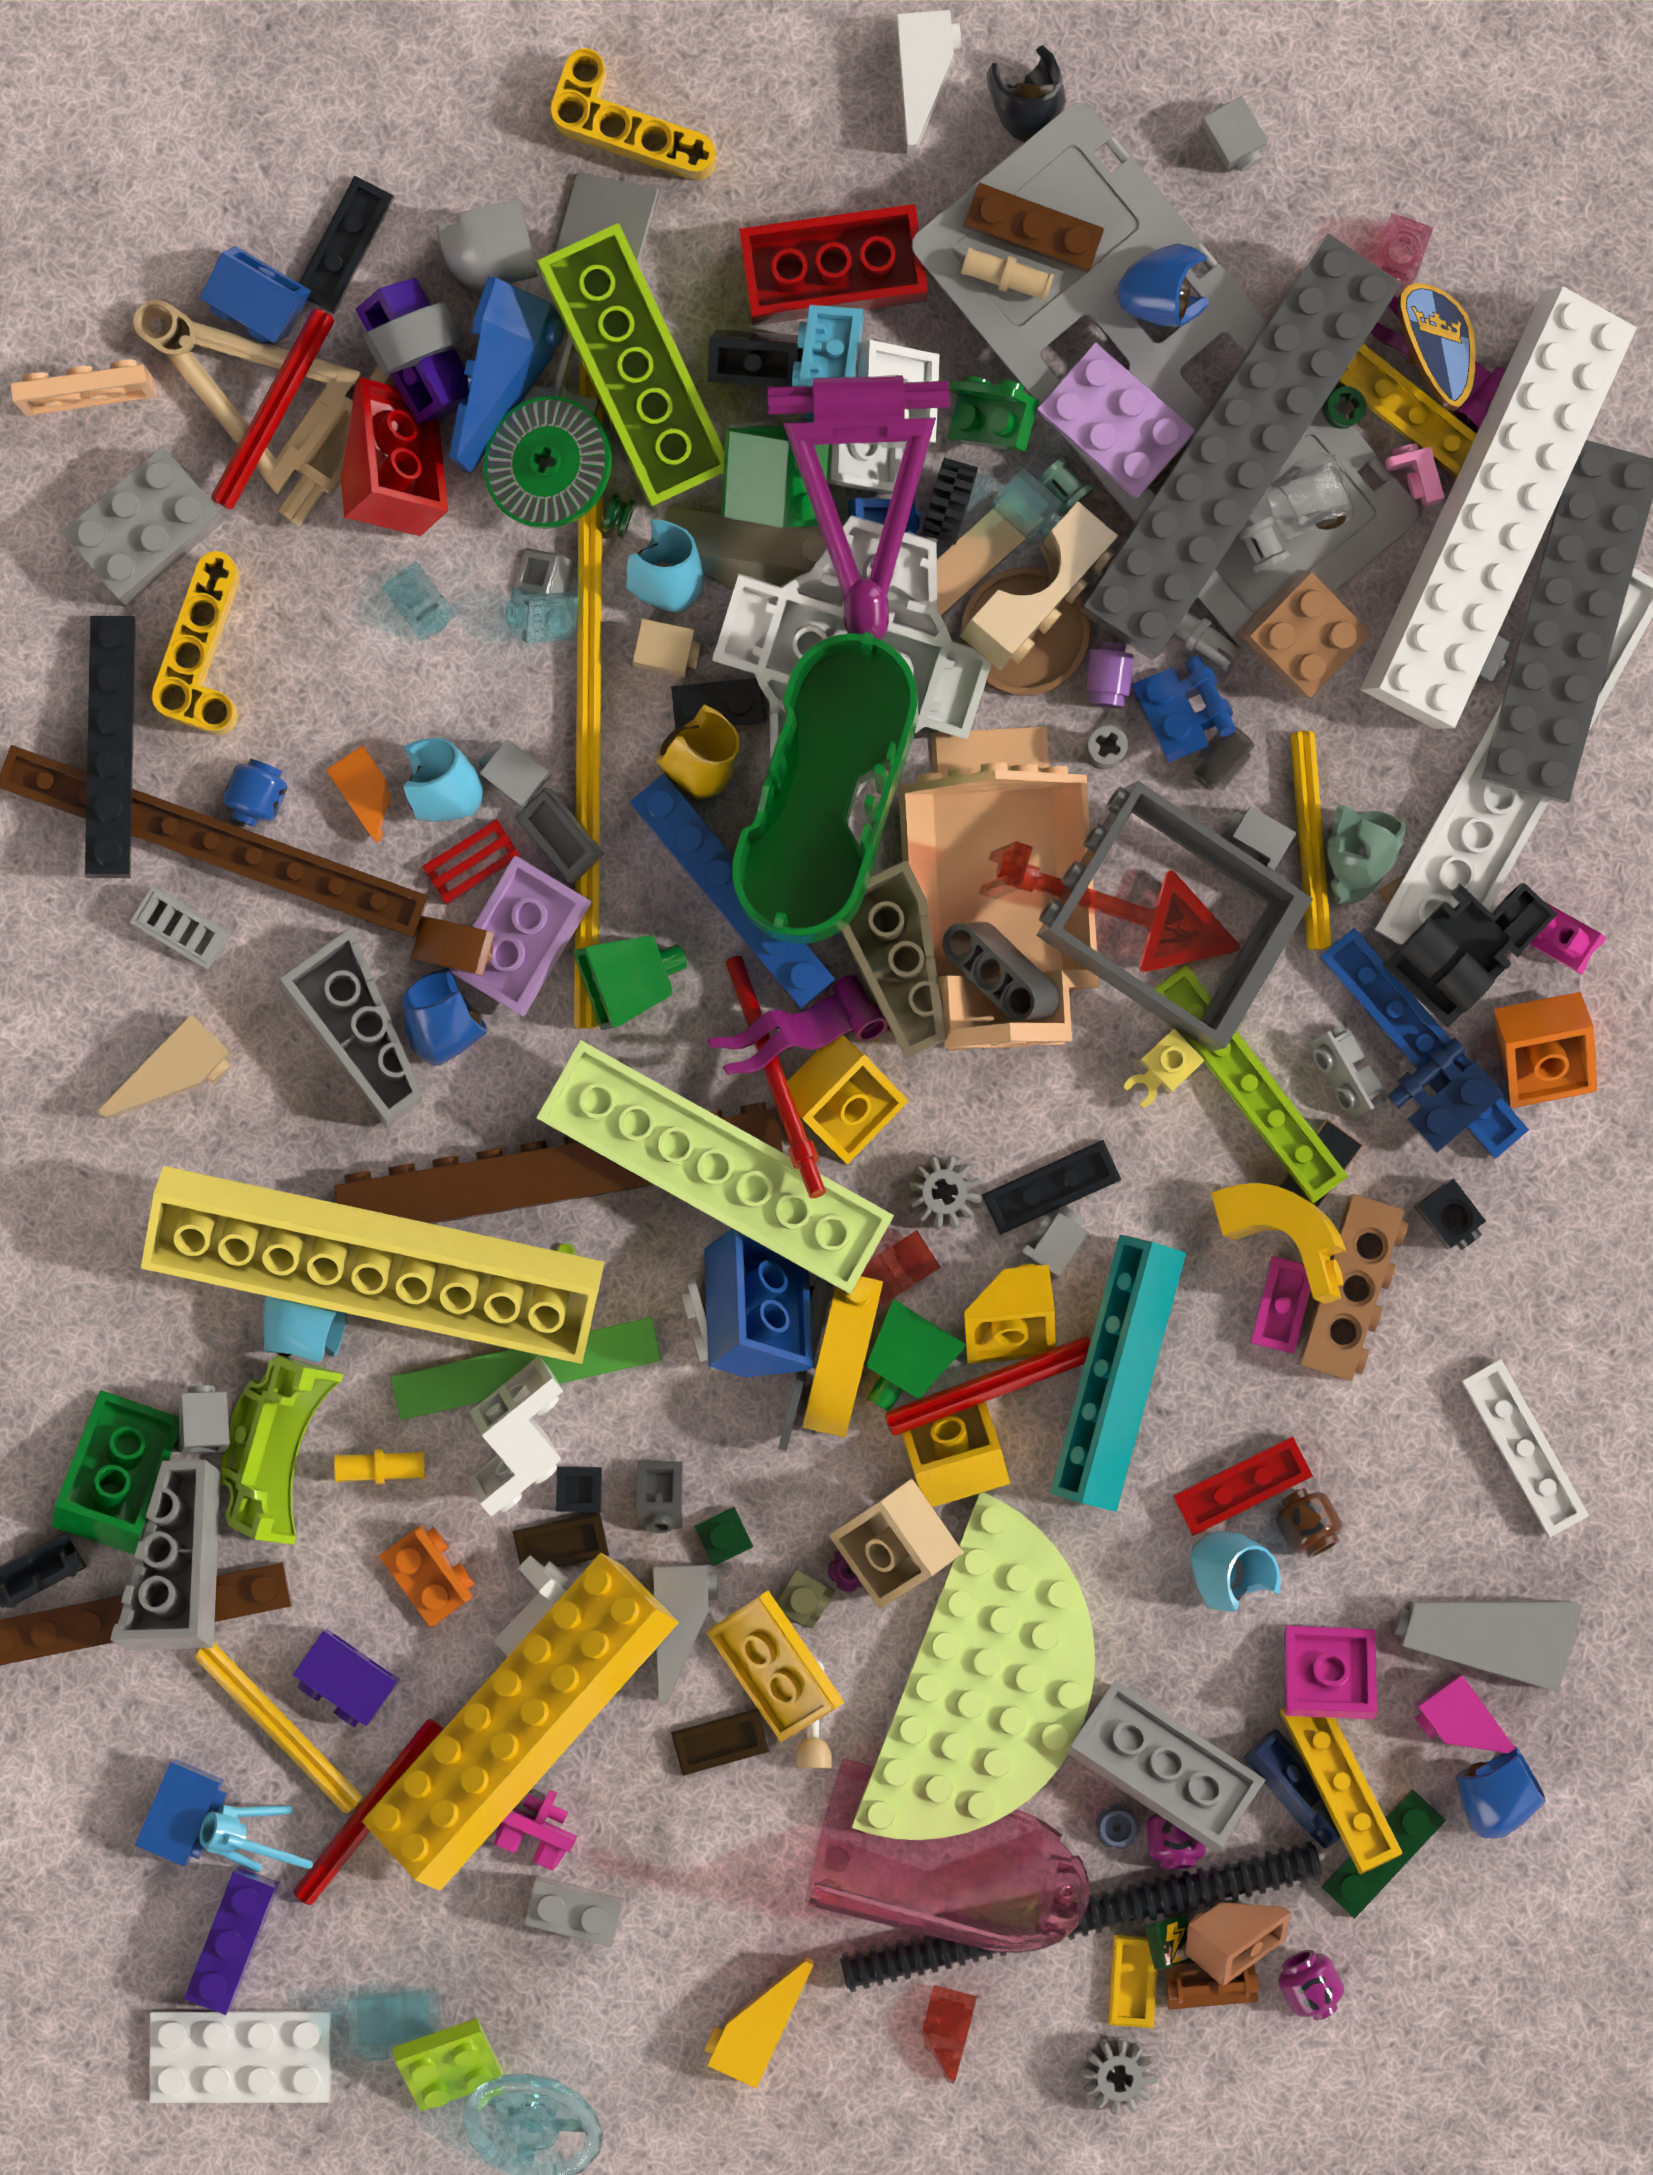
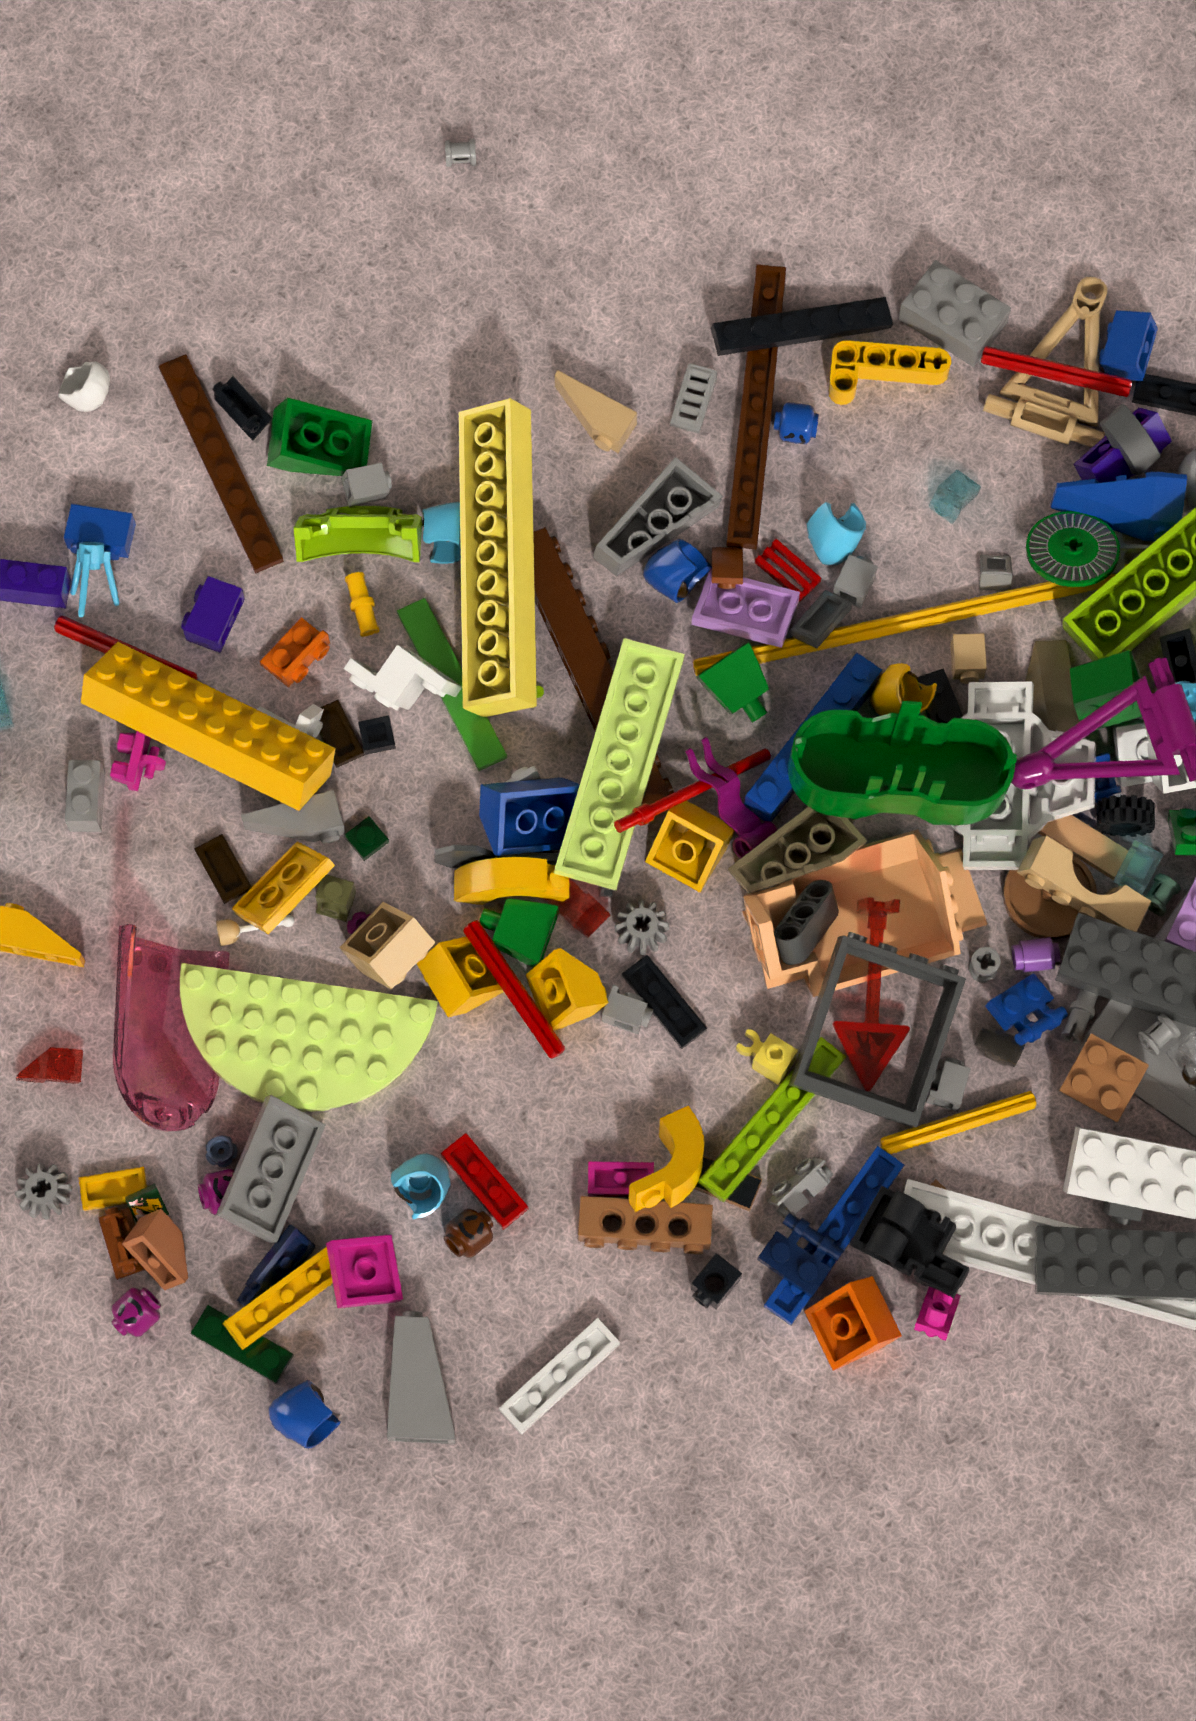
camera: 75 degrees right, 15 degrees down
(83, 388) = (1034, 253): light nougat plate -> none
(176, 1563) = (267, 484): light grey wedge -> none
(279, 1728) = (170, 582): yellow axle -> none
(363, 789) = (817, 489): orange slope -> none
(392, 463) = (1042, 451): red slope -> none
(542, 616) = (967, 574): clear light blue bracket -> none
(618, 516) = (1050, 607): dark green bush -> none
(659, 1495) = (384, 787): dark grey bracket -> none
(669, 587) = (1018, 645): medium azure piece -> none
(1101, 1912) = (158, 1152): black piece -> none
(1118, 1373) = (543, 1072): teal brick -> none
(1382, 839) = (959, 1157): sand green helmet -> none
(1460, 1717) = (352, 1374): dark pink slope -> none

